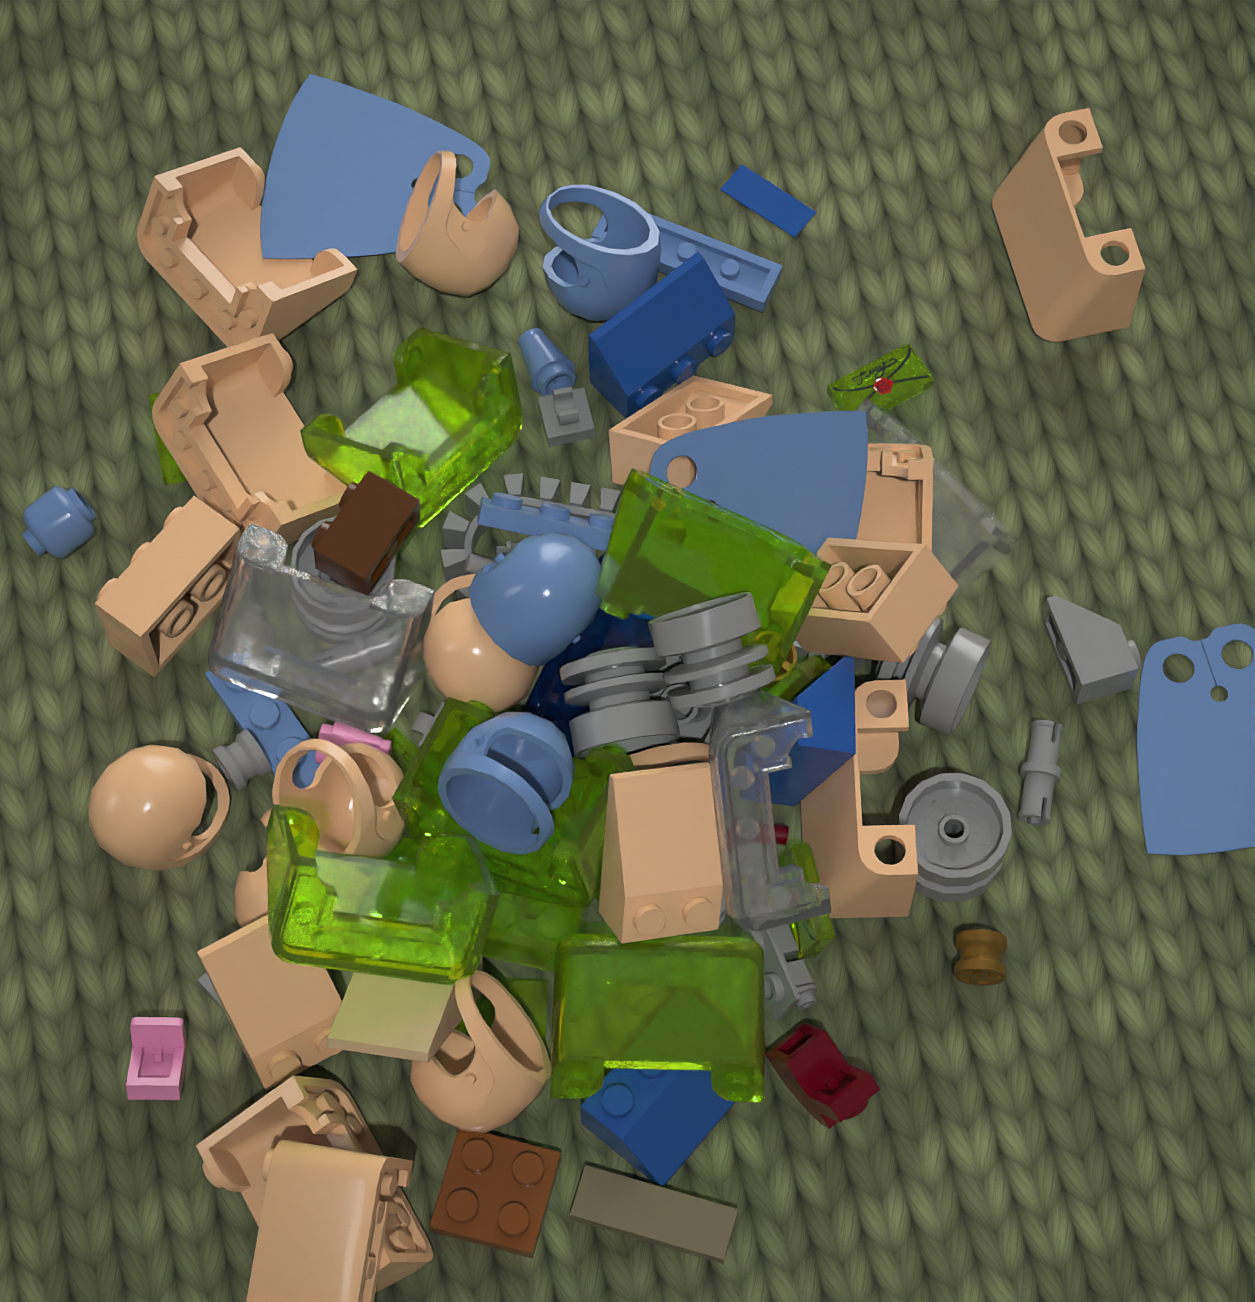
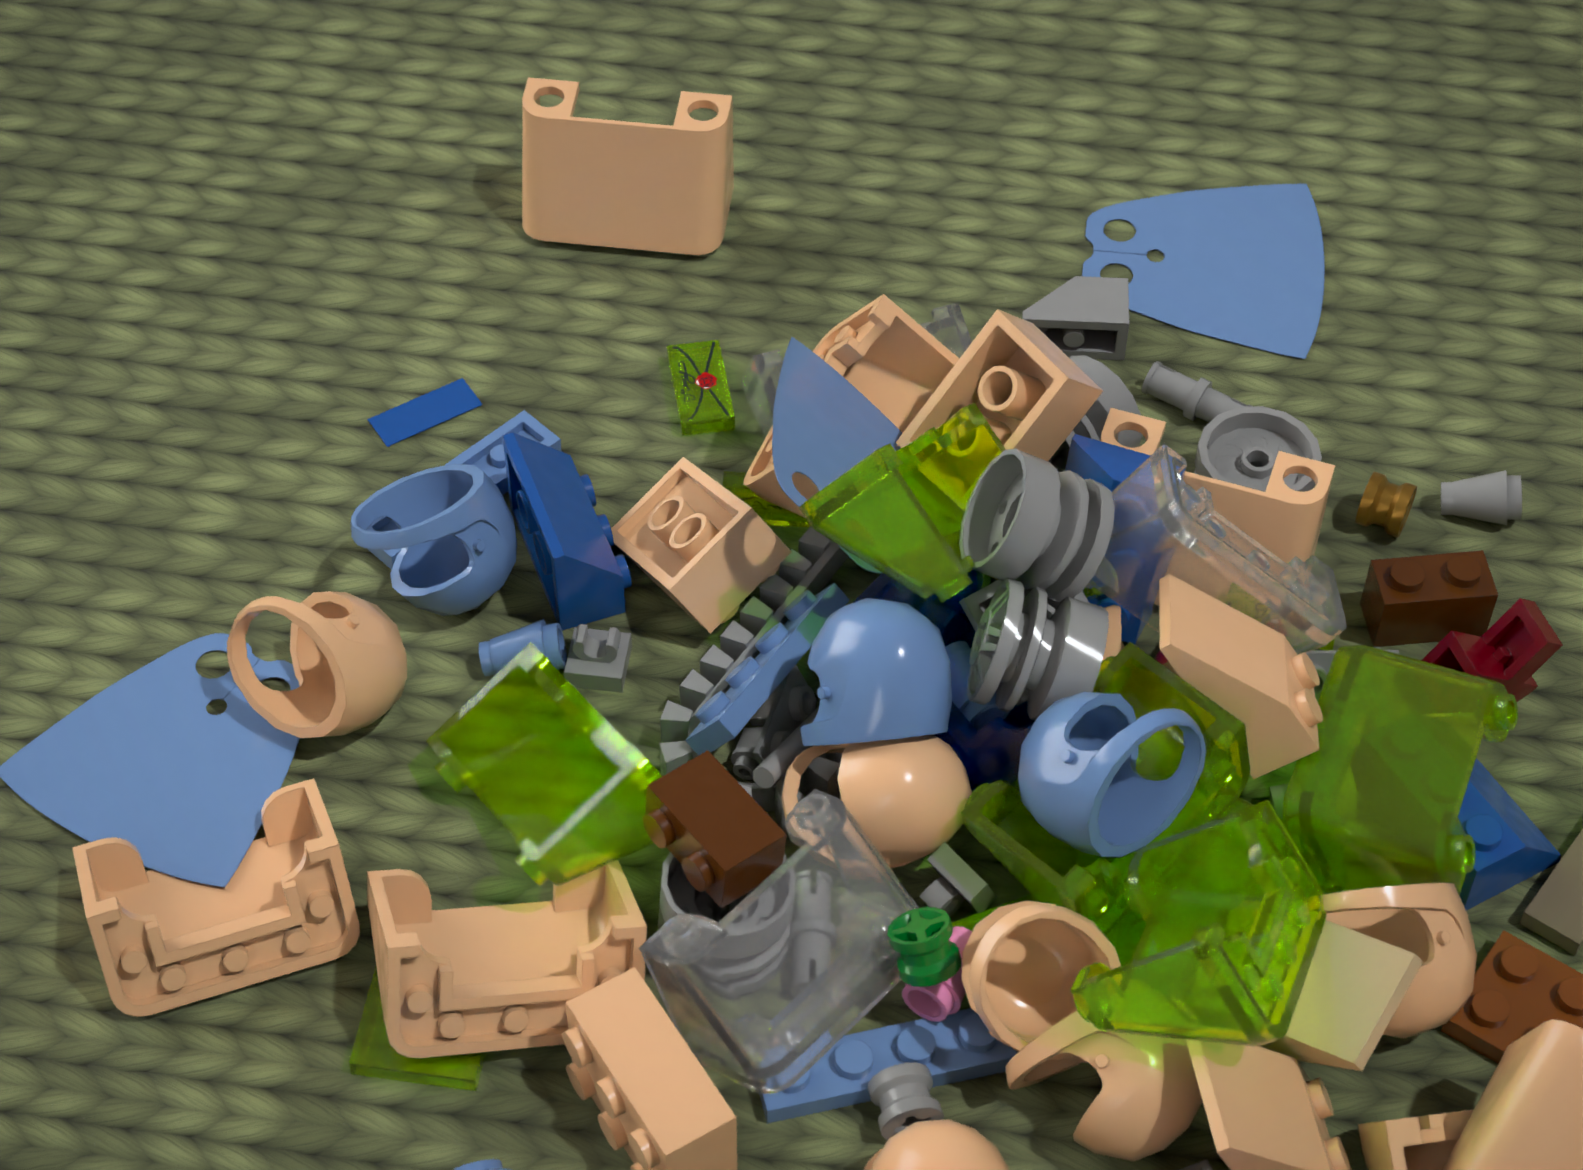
camera: 70 degrees left, 15 degrees down
(341, 715) = (924, 946): none -> green wheel
(881, 1014) = (1427, 597): none -> reddish brown brick
(1029, 1040) = (1484, 497): none -> light grey cone

